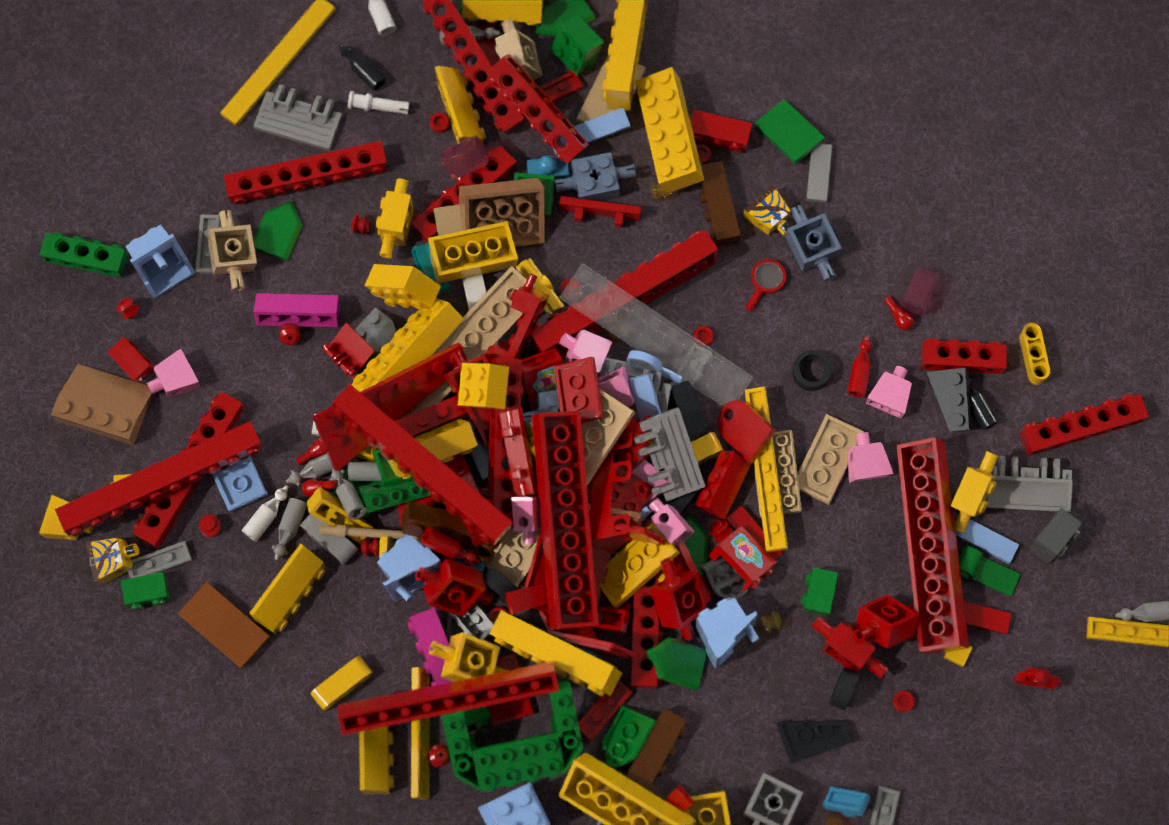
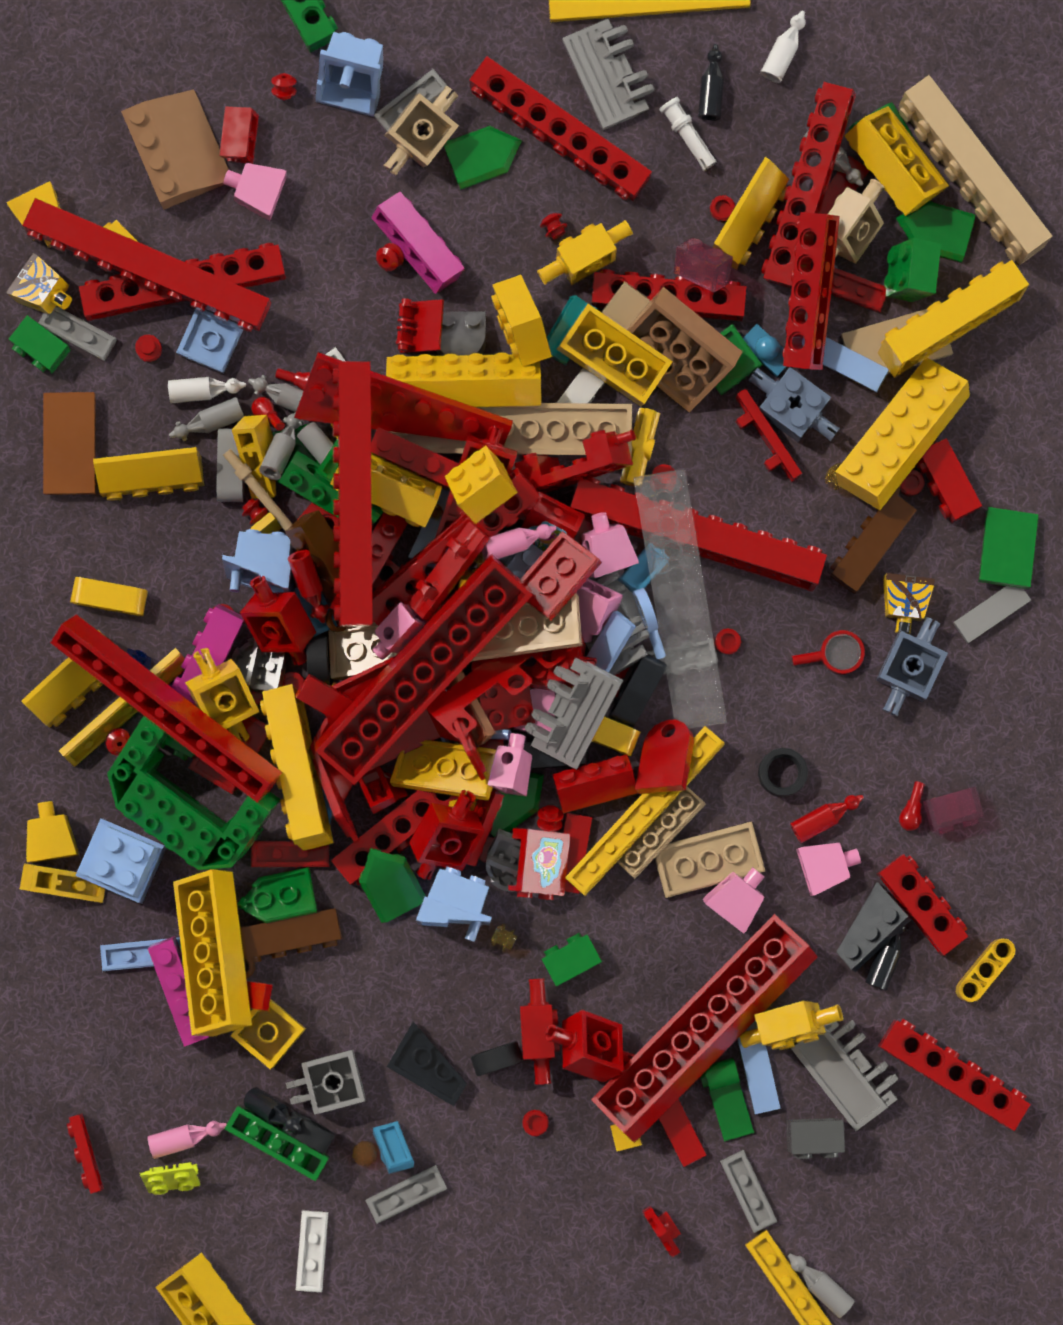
camera: 45 degrees right, 10 degrees up
(535, 398) = (515, 541): none -> bright pink wheel
(618, 350) = (637, 575): none -> dark azure tile
(1054, 607) = (748, 1191): none -> light grey tile

